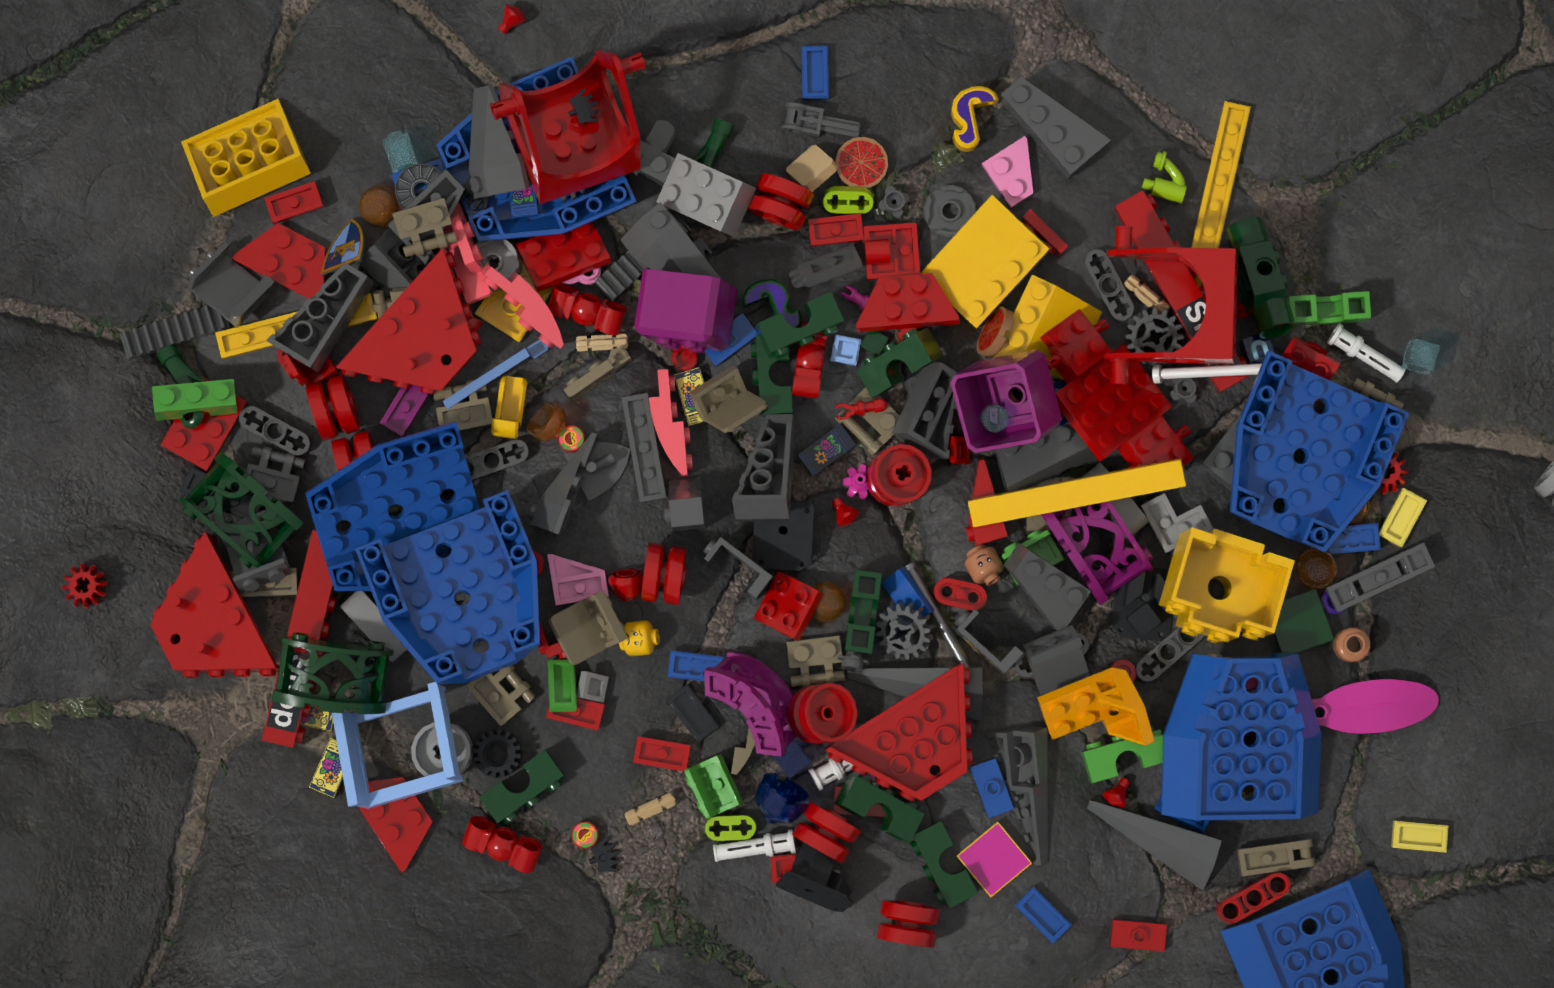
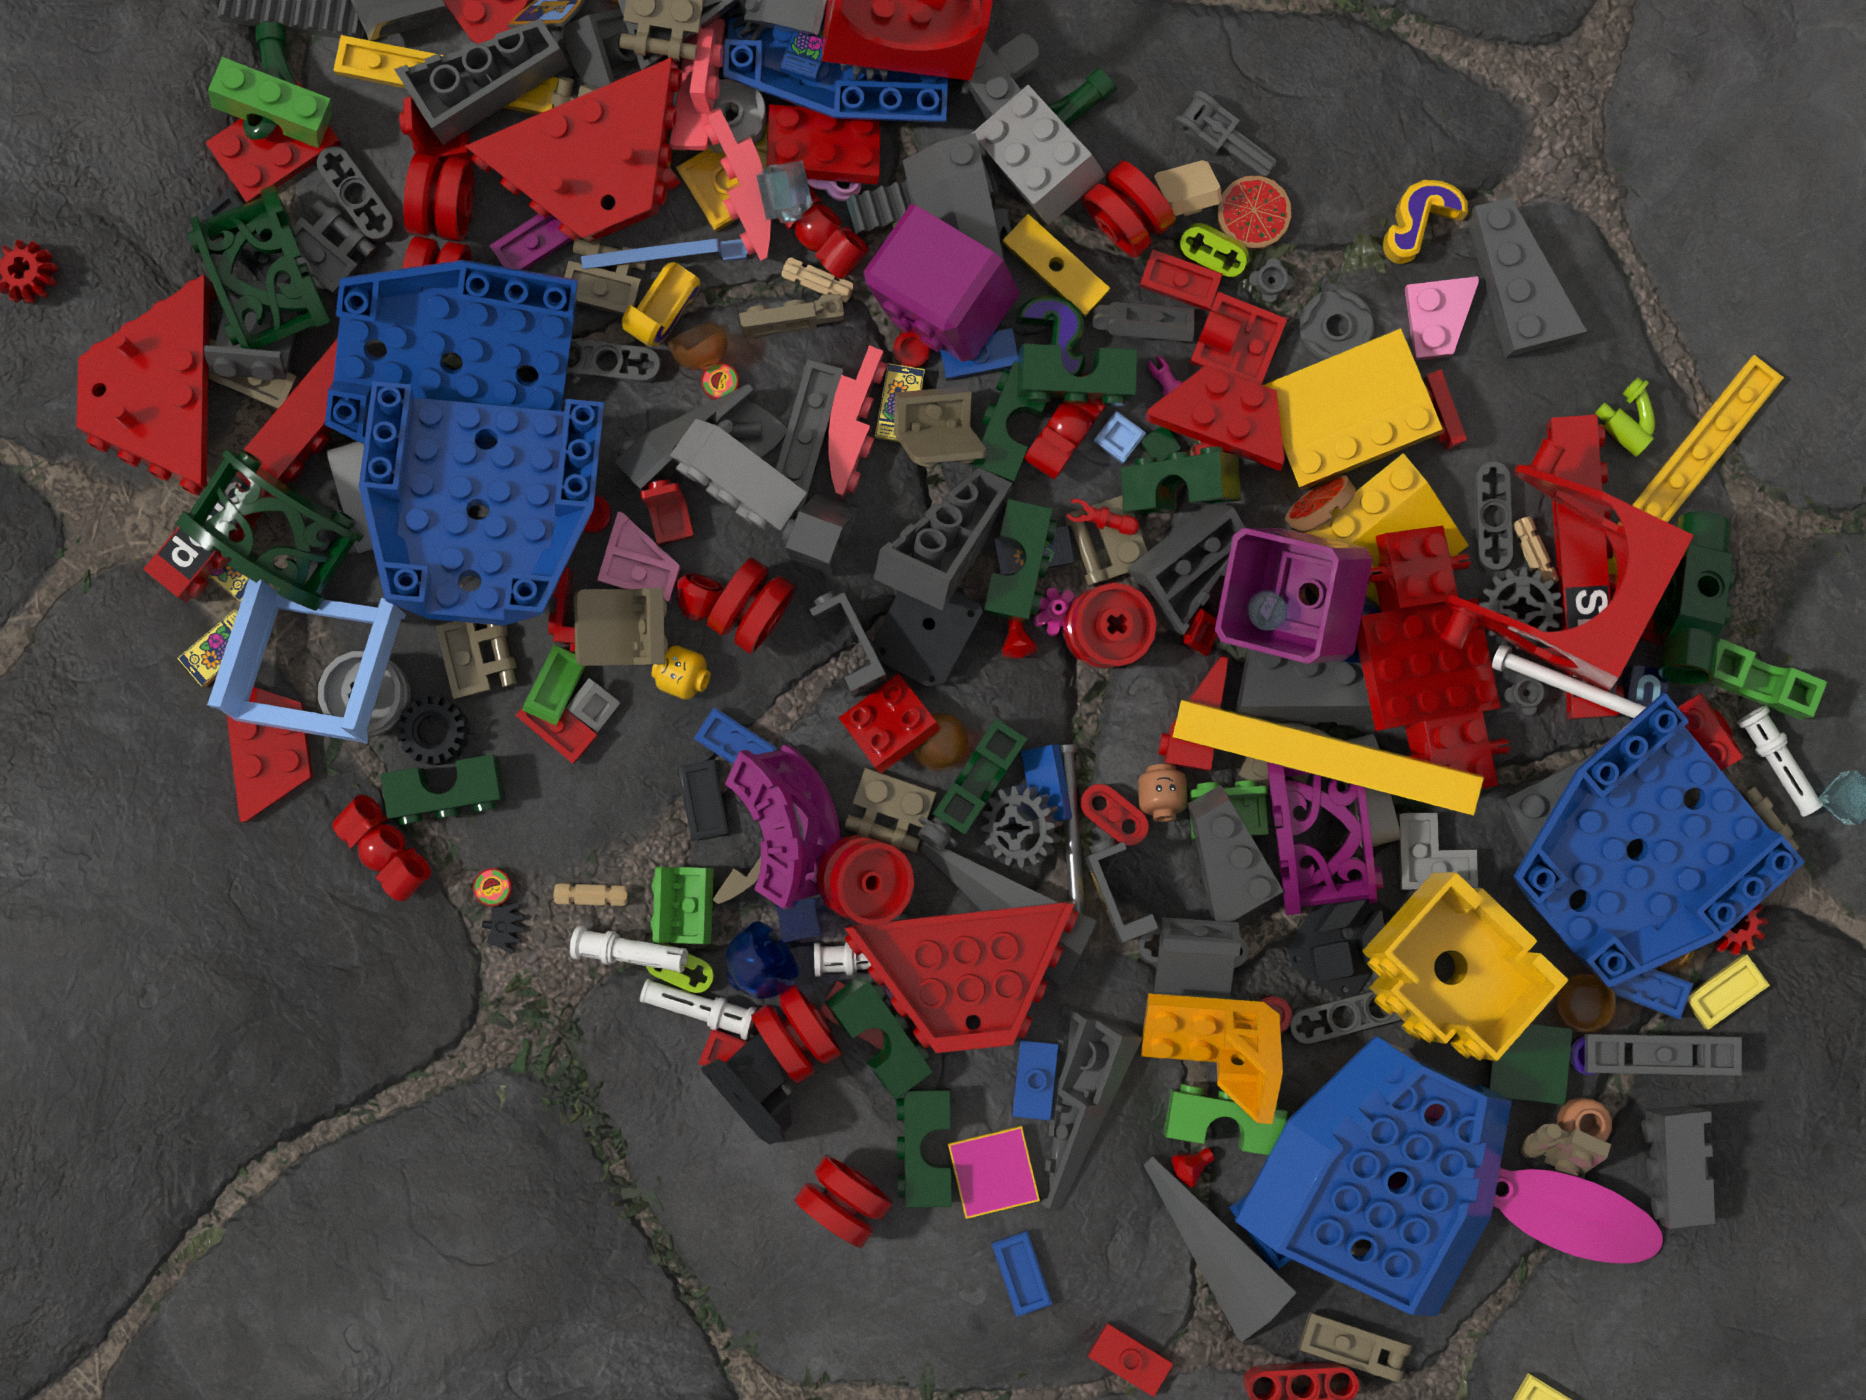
camera: 30 degrees right, 0 degrees up
(556, 298) = (784, 191): none -> clear light blue brick
(580, 540) = (668, 512): none -> red bracket
(616, 496) = (736, 475): none -> light grey brick
(661, 753) = (638, 832): red plate -> none
(681, 836) = (612, 948): none -> white pin
(734, 255) = (1040, 249): none -> yellow tile
(815, 73) = (1250, 72): blue tile -> none
(818, 438) = (1015, 594): none -> dark green arch
(1349, 668) = (1567, 1151): none -> dark tan plate
(1424, 643) = (1679, 1166): none -> dark grey wedge

